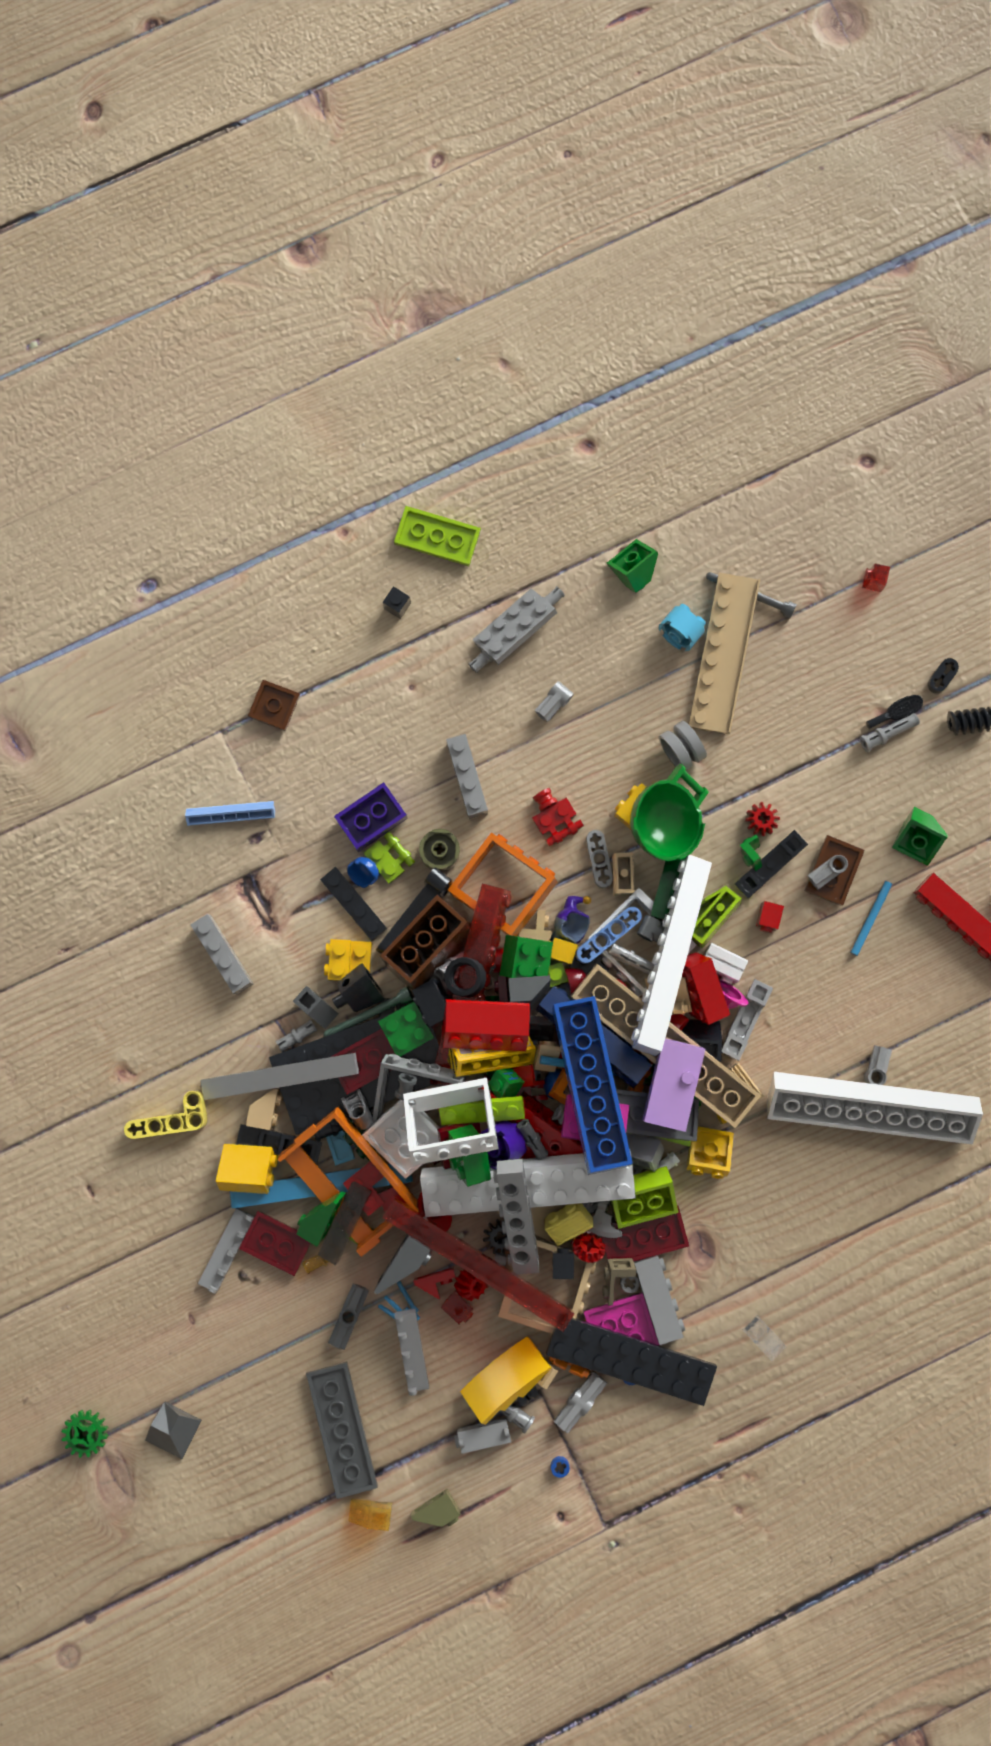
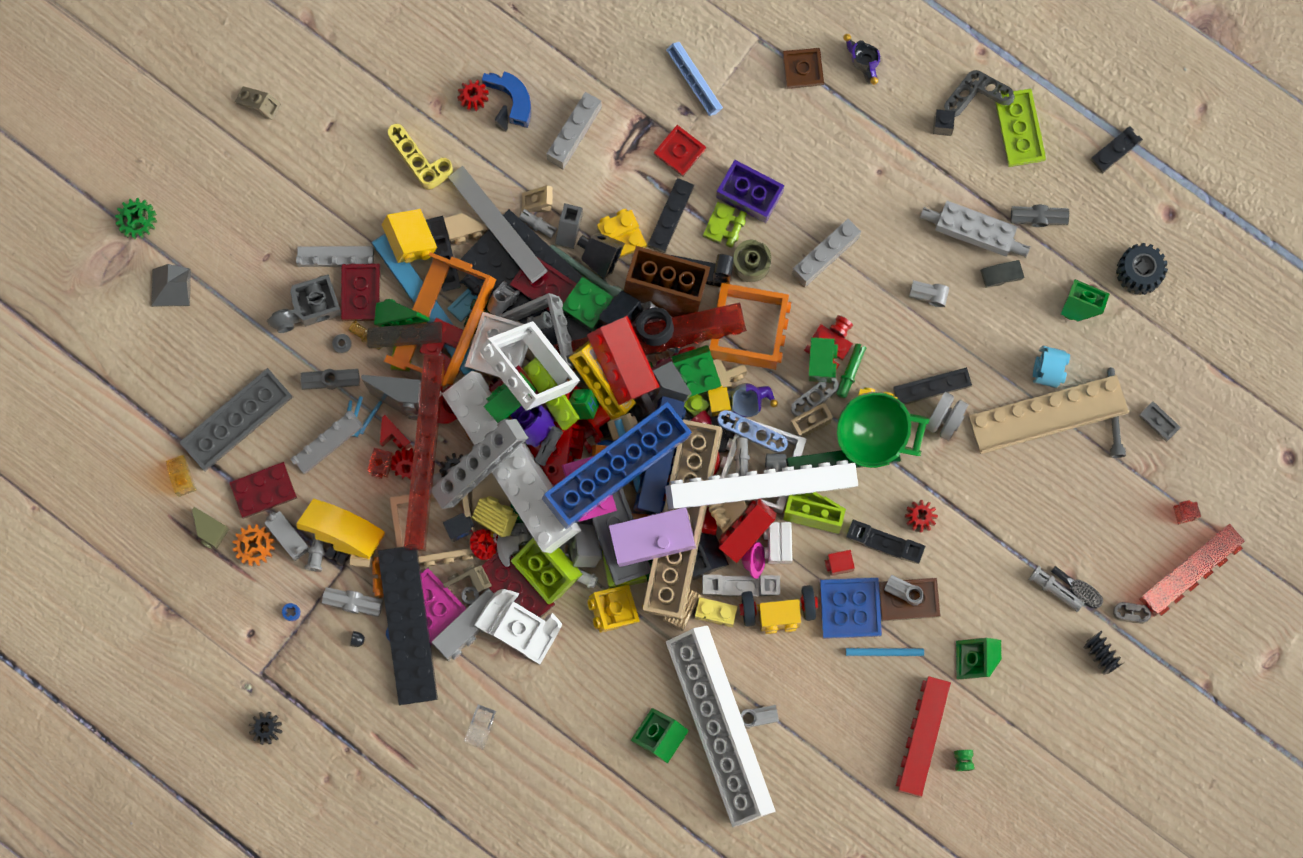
camera: 65 degrees right, 5 degrees down
(28, 1251) = (258, 100): none -> dark tan bracket
(127, 1035) = (469, 90): none -> red gear
(170, 992) = (511, 85): none -> blue arch
(173, 1018) = (502, 118): none -> black slope
(264, 1300) = (312, 303): none -> dark grey brick
(273, 1024) = (537, 199): none -> tan slope
(294, 863) = (680, 150): none -> red plate
(295, 643) = (864, 58): none -> black piece
(325, 1286) = (342, 349): none -> dark grey plate
(363, 872) = (701, 208): blue hair -> none
(378, 553) = (978, 86): none -> dark grey beam
(425, 1436) = (263, 490): none -> dark red plate
(484, 1467) = (249, 552): none -> orange gear
(503, 461) = (1116, 150): none -> black plate
(531, 562) = (1039, 215): none -> dark grey piece
(569, 625) = (1002, 273): none -> pearl dark grey slope
(573, 834) = (821, 360): none -> green brick
(591, 812) = (851, 370): none -> green axle
(619, 1415) = (357, 639): none -> black hinge
(630, 497) = (1141, 269): none -> black wheel
(644, 745) = (933, 386): none -> black plate
(656, 1552) = (266, 735): none -> black gear
(684, 1254) = (518, 626): none -> white piece
(749, 854) = (890, 516): green bracket -> none
(761, 1056) = (716, 612): none -> light yellow brick
(779, 557) = (1159, 421): none -> dark grey plate
(794, 998) = (779, 614): none -> brick
(816, 928) = (850, 608): none -> blue plate
(851, 1168) = (660, 735): none -> green slope
(931, 601) = (1192, 569): none -> clear red brick

